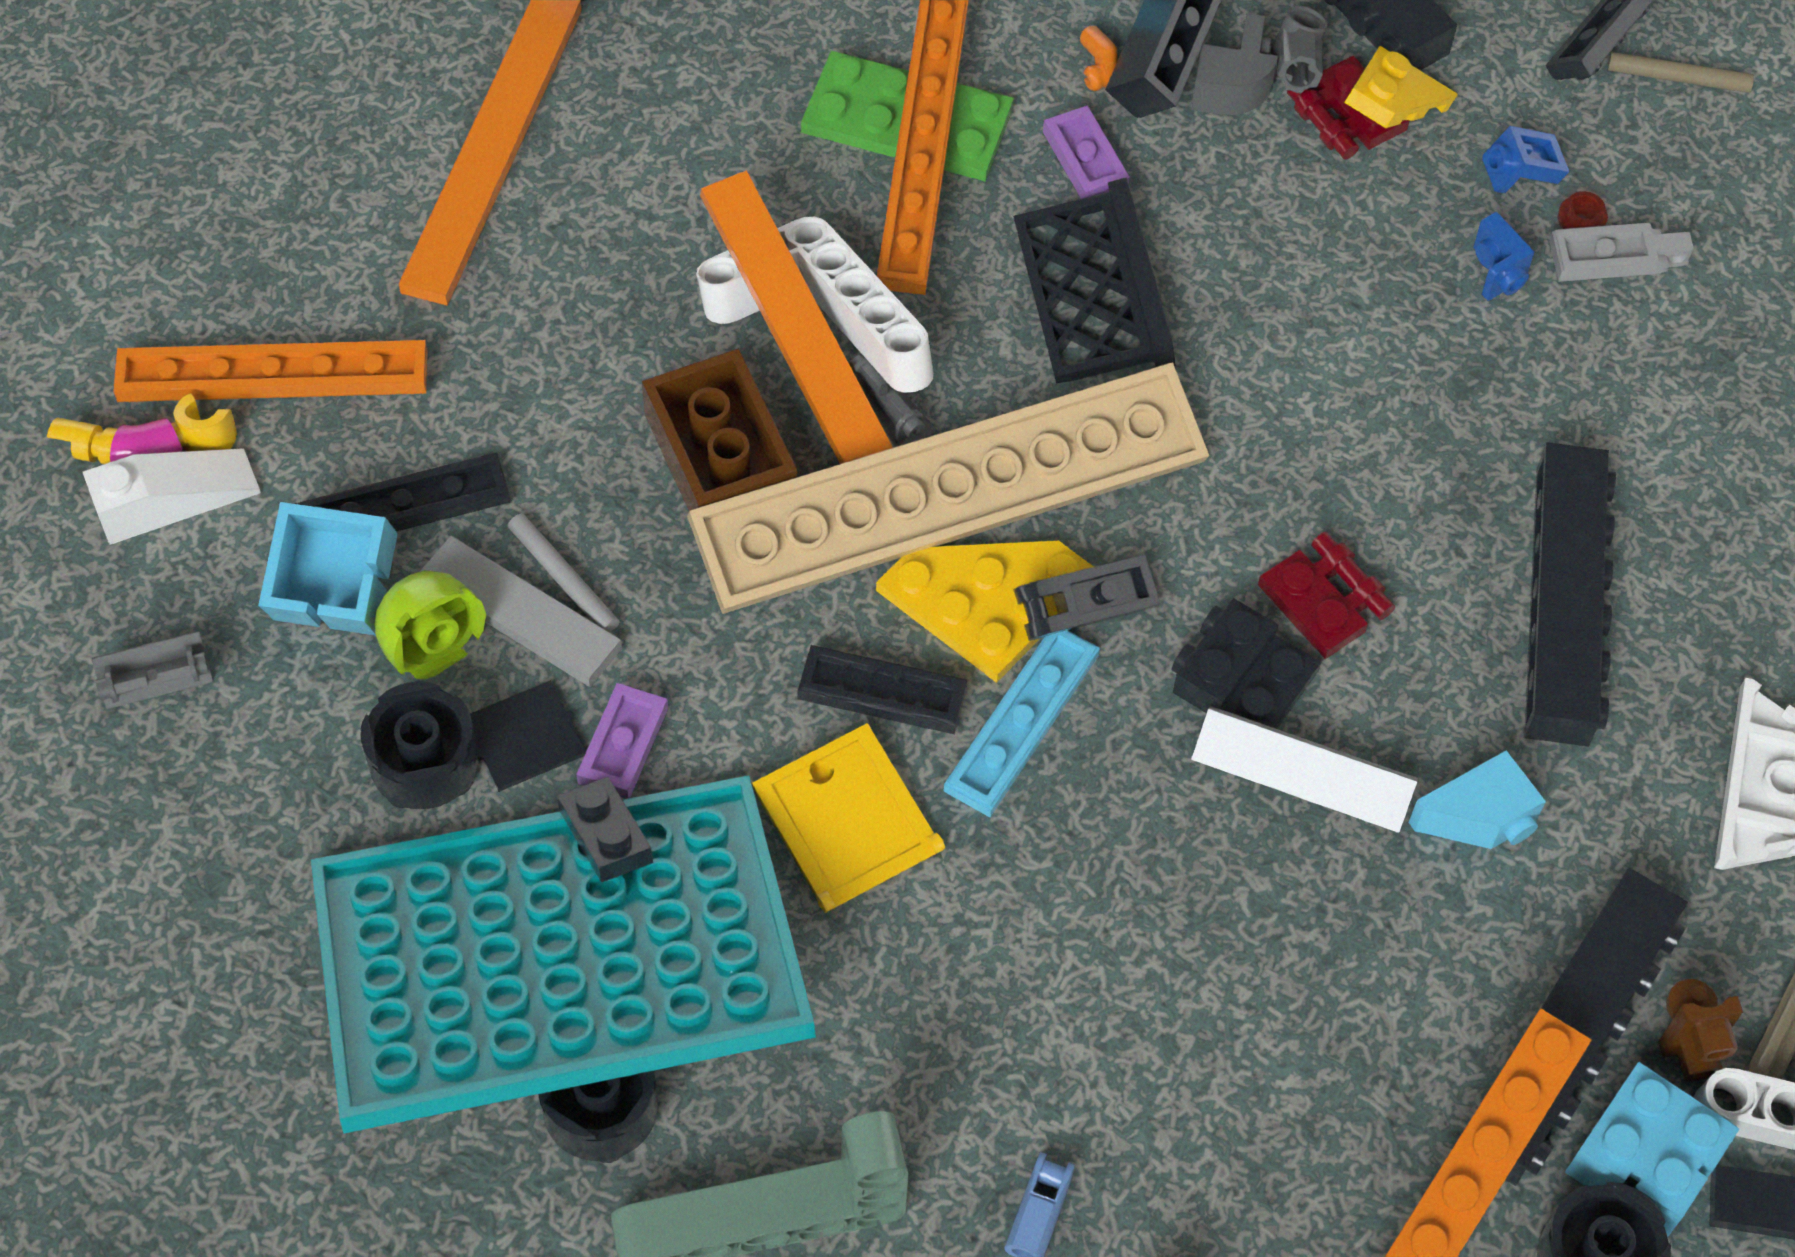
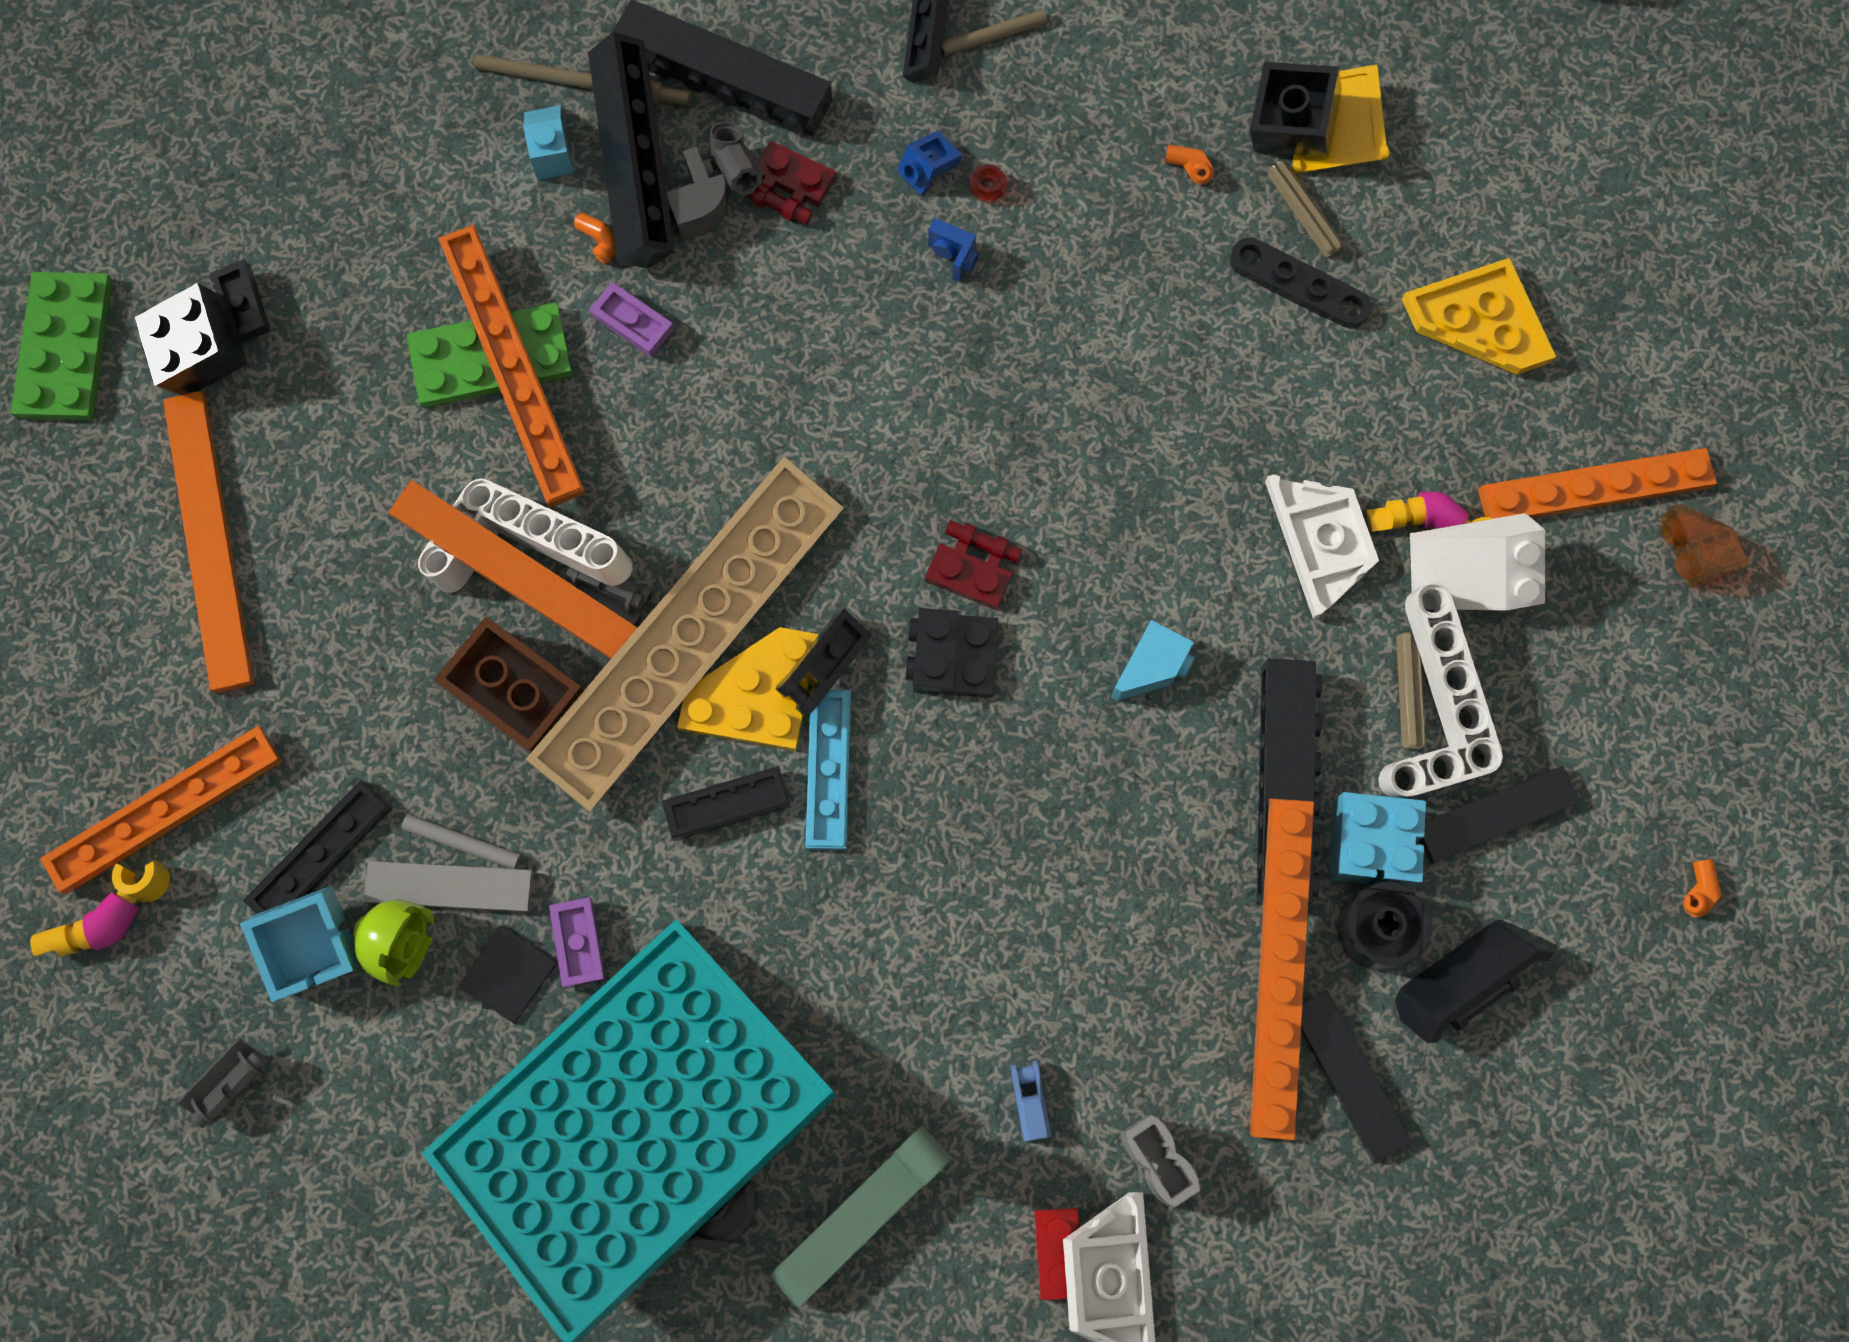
camera: 30 degrees left, 15 degrees up
(166, 488) = (146, 942): white slope -> none
(420, 746) = (422, 1032): black brick -> none
(605, 829) = (607, 1019): black plate -> none
(846, 817) = (761, 910): yellow container -> none
(1137, 284) = (724, 405): black fence -> none
(1304, 769) = (1028, 701): tile -> none
(1397, 91) = (815, 155): yellow wing -> none
(1569, 595) = (1127, 477): black brick -> none
(1617, 251) = (1024, 200): light grey hinge -> none
(1699, 1029) = (1369, 746): reddish brown hips -> none

